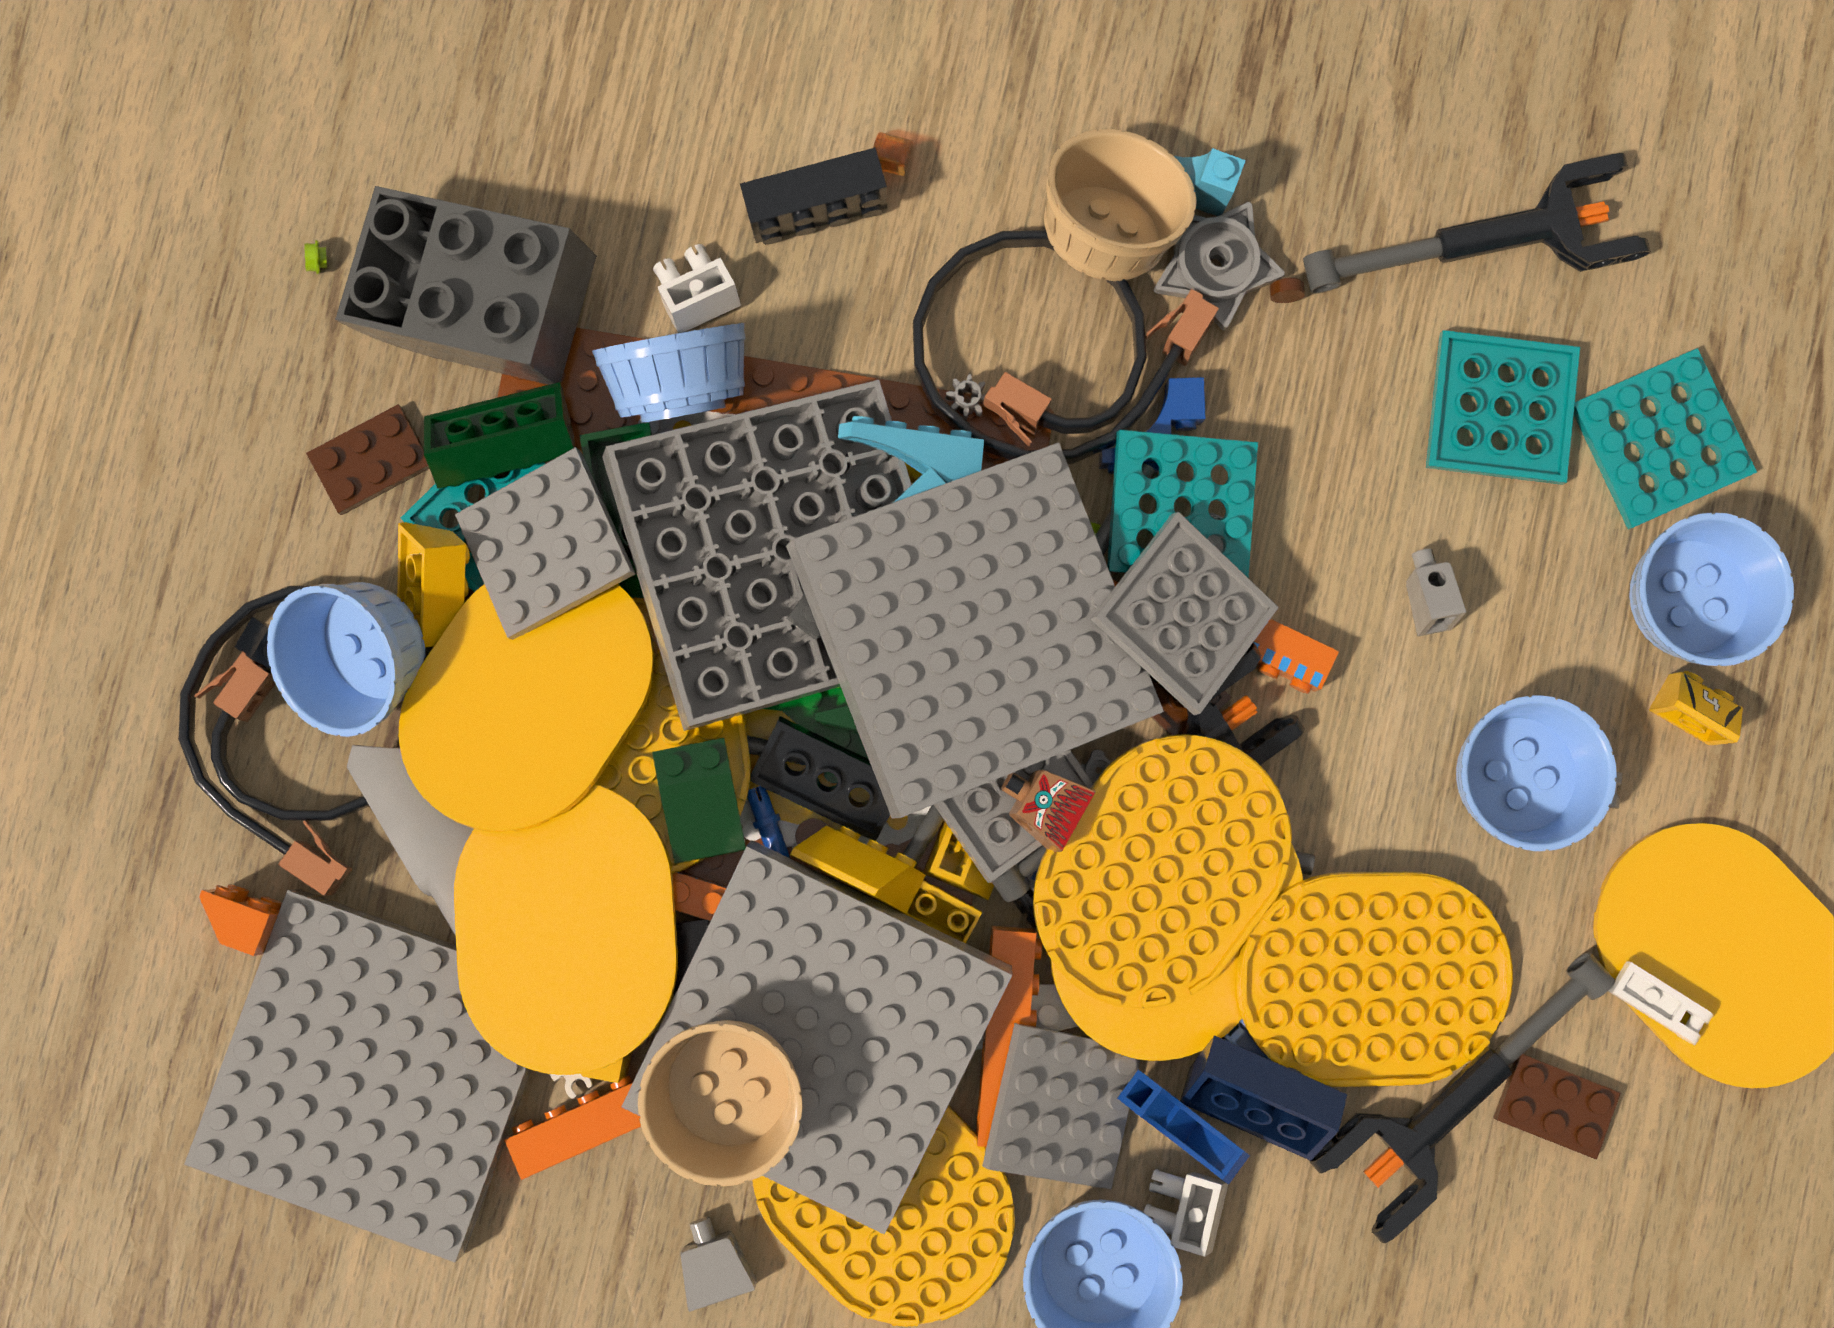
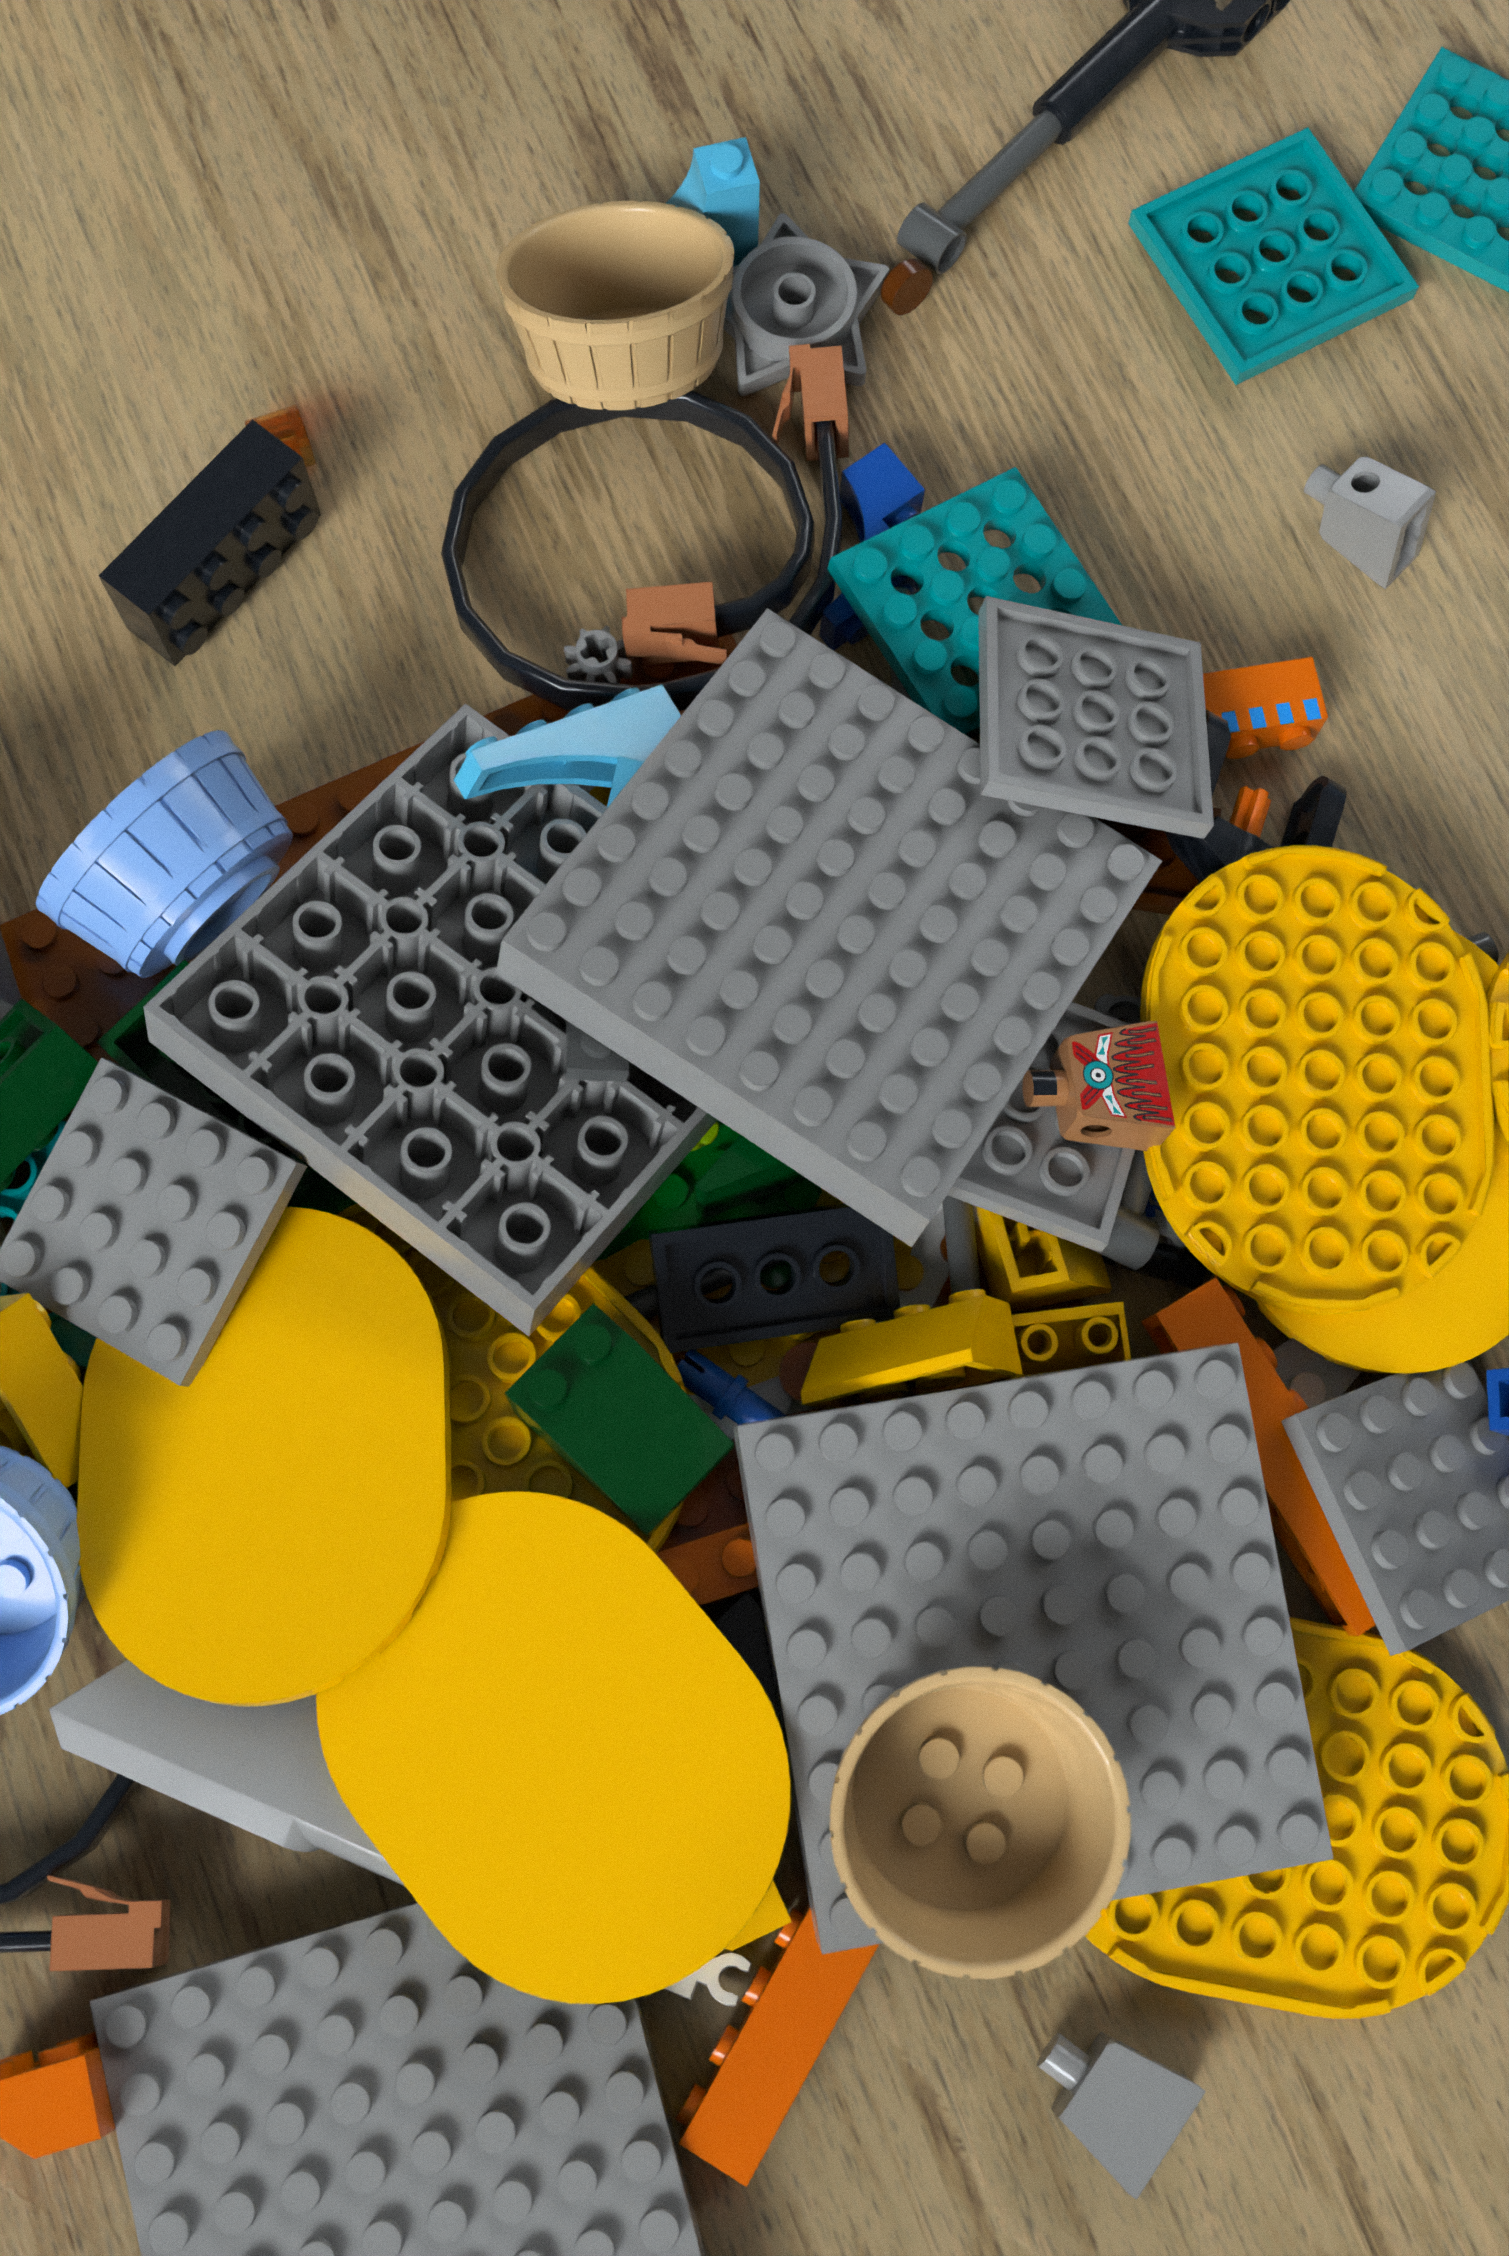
camera: 35 degrees left, 10 degrees down
(697, 294) = (128, 750): white brick -> none

